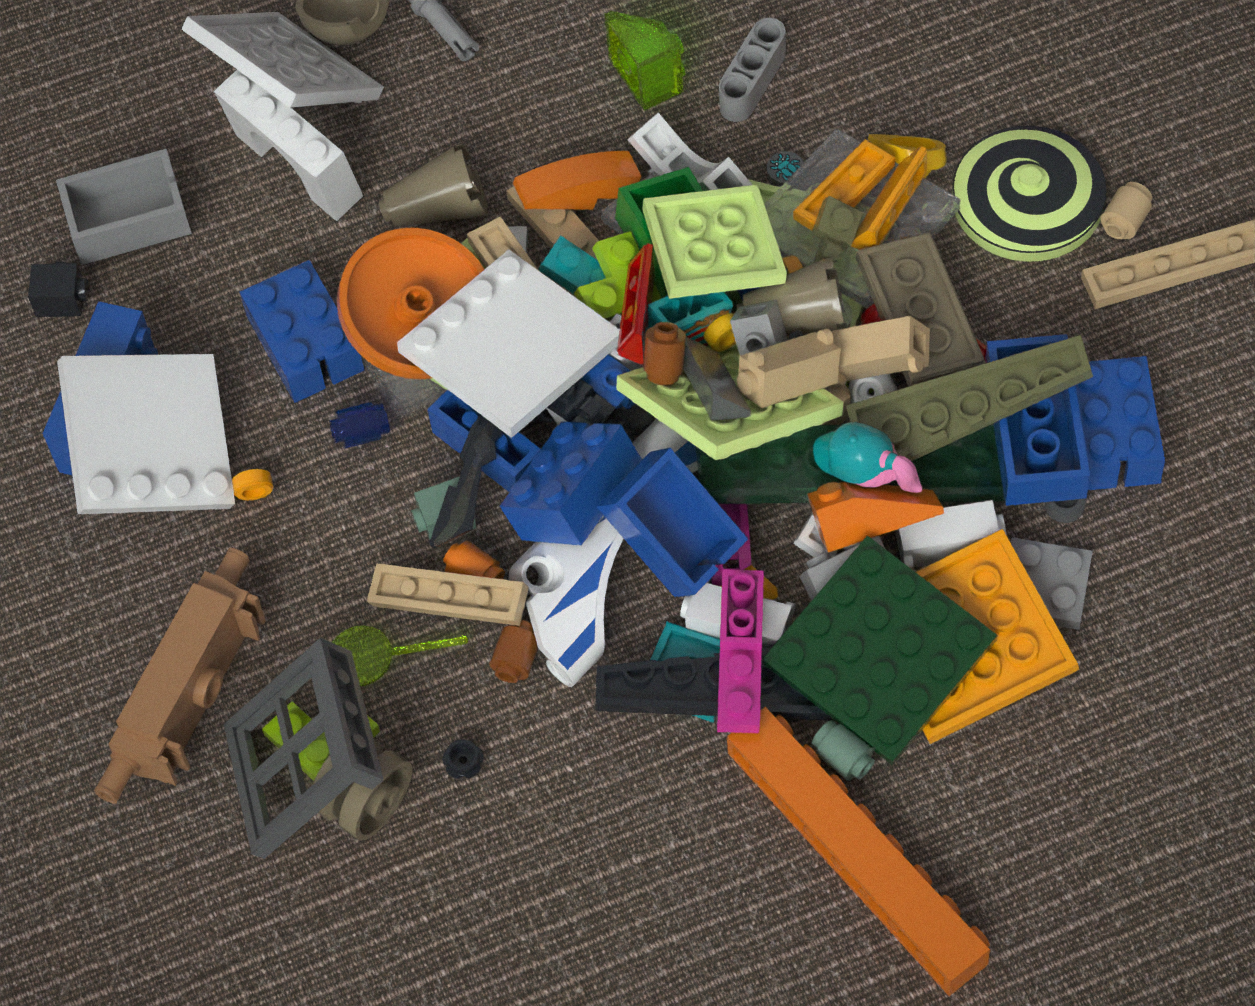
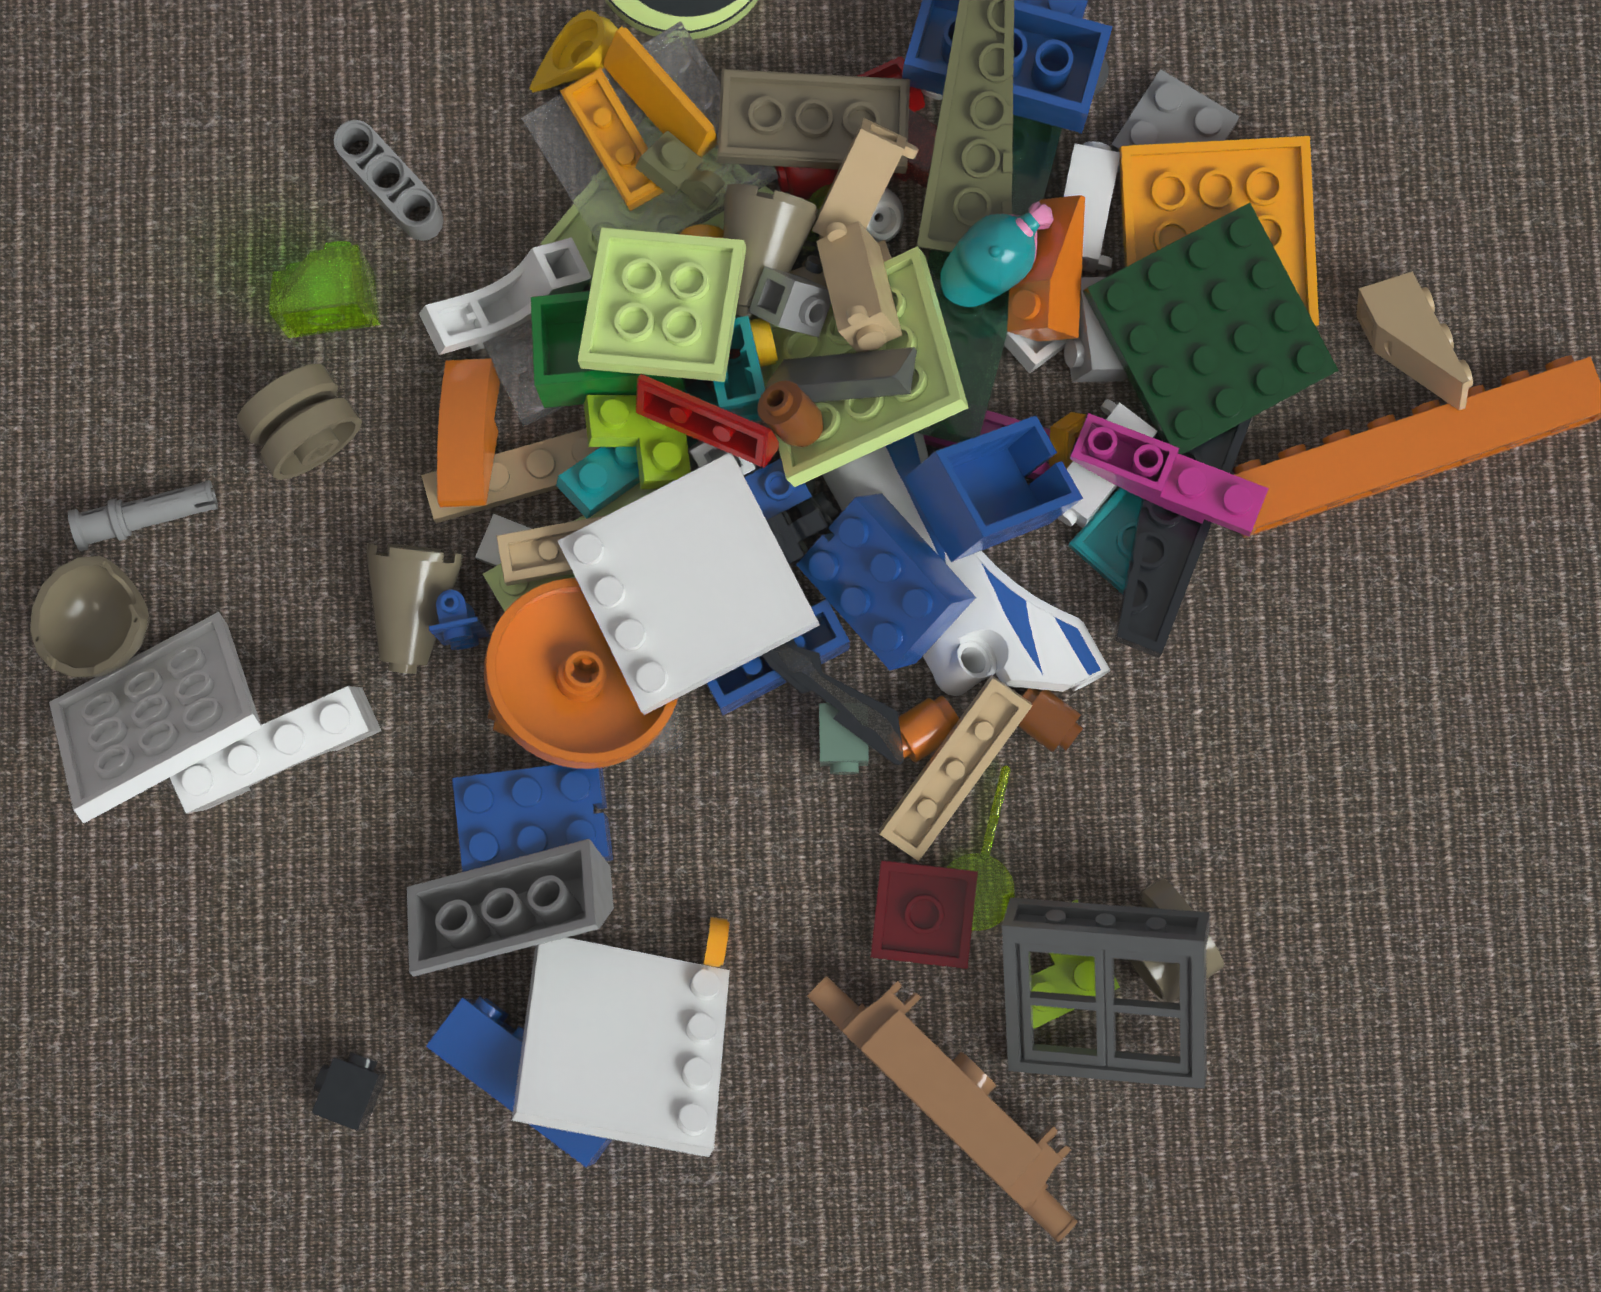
camera: 70 degrees left, 20 degrees up
(123, 206) = (270, 976): light grey piece -> none
(226, 325) = (507, 906): none -> light grey slope
(326, 610) = (924, 914): none -> dark red plate
(359, 424) = (684, 794): clear blue brick -> none
(430, 213) = (457, 622): none -> blue hinge
(462, 749) = (1164, 818): black plate -> none
(539, 72) = (299, 421): none -> dark tan wheel
(782, 166) = (538, 198): tile -> none
(843, 750) = (1300, 416): sand green brick -> none
(956, 796) = (1407, 334): none -> tan slope

